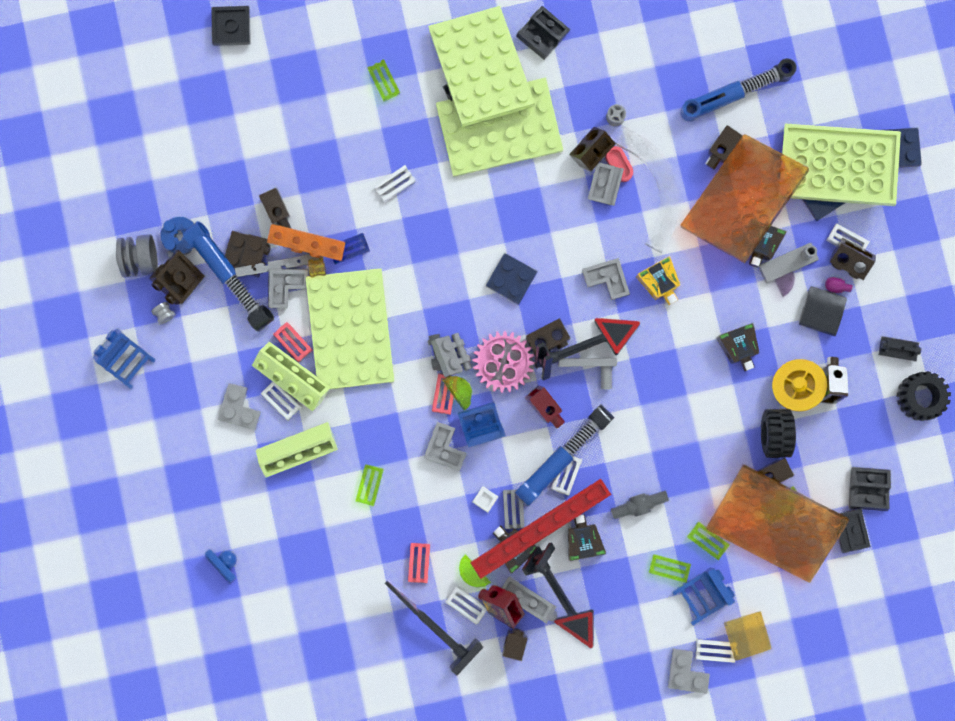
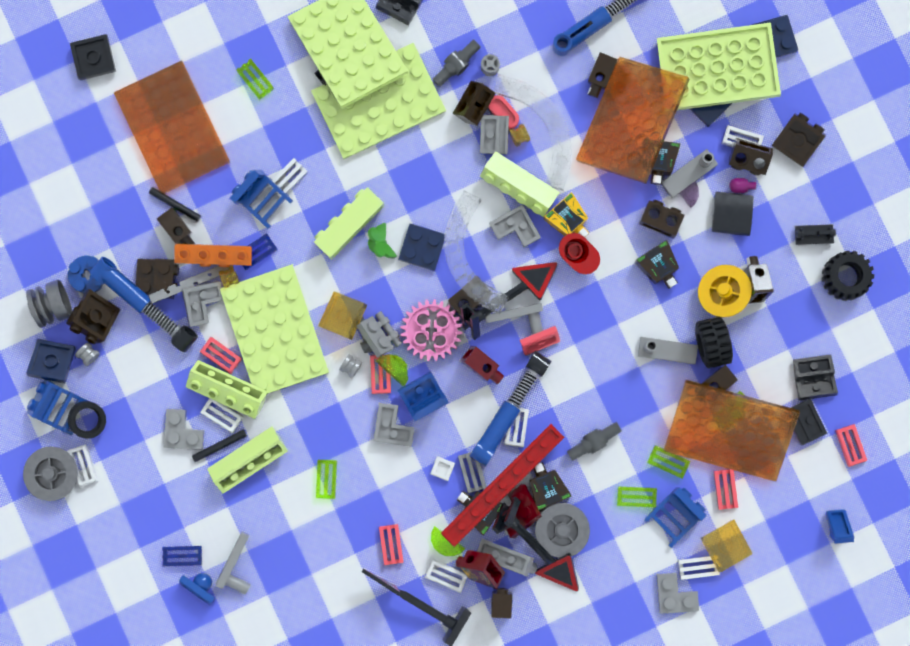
camera: 10 degrees left, 0 degrees up
(102, 421) = (50, 473): none -> flat silver wheel
(126, 312) = (51, 361): none -> dark blue plate
(135, 417) = (90, 464): none -> white tile
(149, 362) = (85, 405): none -> black tyre
(197, 526) = (165, 556): none -> clear blue tile
(250, 559) = (225, 577): none -> light grey piece
(271, 430) = (220, 445): none -> black bar
(279, 185) = (176, 205): none -> black bar
(292, 110) = (172, 127): none -> clear orange plate
(358, 185) = (251, 188): none -> blue plate
(416, 379) = (350, 366): none -> light grey wheel
(419, 328) = (342, 315): none -> clear yellow tile
(445, 240) = (349, 223): none -> yellowish green brick
(469, 265) = (377, 242): none -> bright green animal
(543, 300) = (457, 260): none -> clear plate
(560, 558) = (527, 511): none -> dark red plate
(583, 106) = (456, 63): none -> dark grey pin
(590, 585) = (562, 530): none -> flat silver wheel
(607, 394) = (540, 340): none -> coral tile
(620, 237) = (519, 184): none -> yellowish green brick
(630, 189) = (519, 135): none -> clear yellow wheel
(664, 318) = (579, 253): none -> red piece
(730, 431) = (667, 350): none -> light grey piece
(750, 305) = (659, 224): none -> dark brown brick
(759, 576) = (726, 492): none -> coral tile
(863, 641) = (839, 526): none -> blue tile
(896, 546) = (850, 444): none -> coral tile
(904, 252) = (799, 139): none -> dark brown plate

